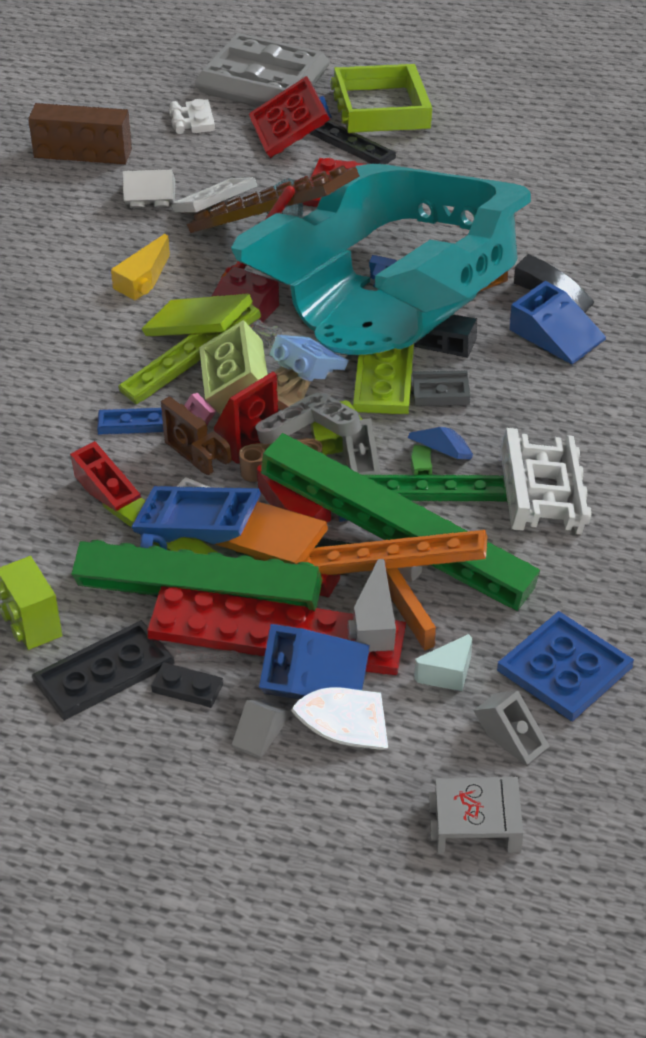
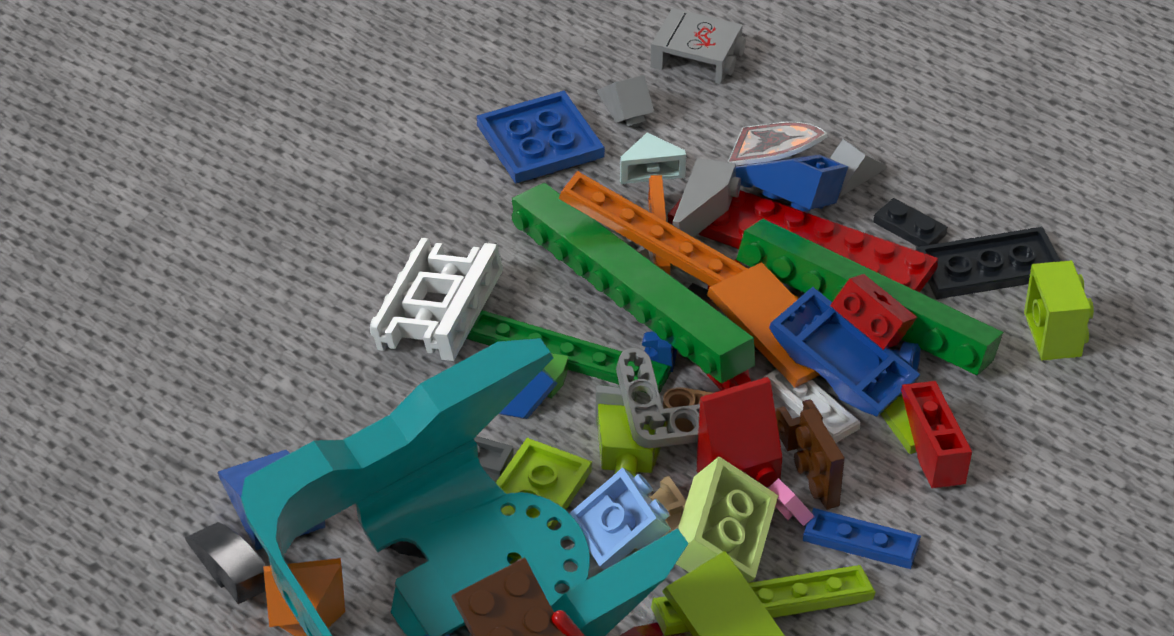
camera: 160 degrees left, 0 degrees up
(181, 528) = (873, 311): none -> red brick

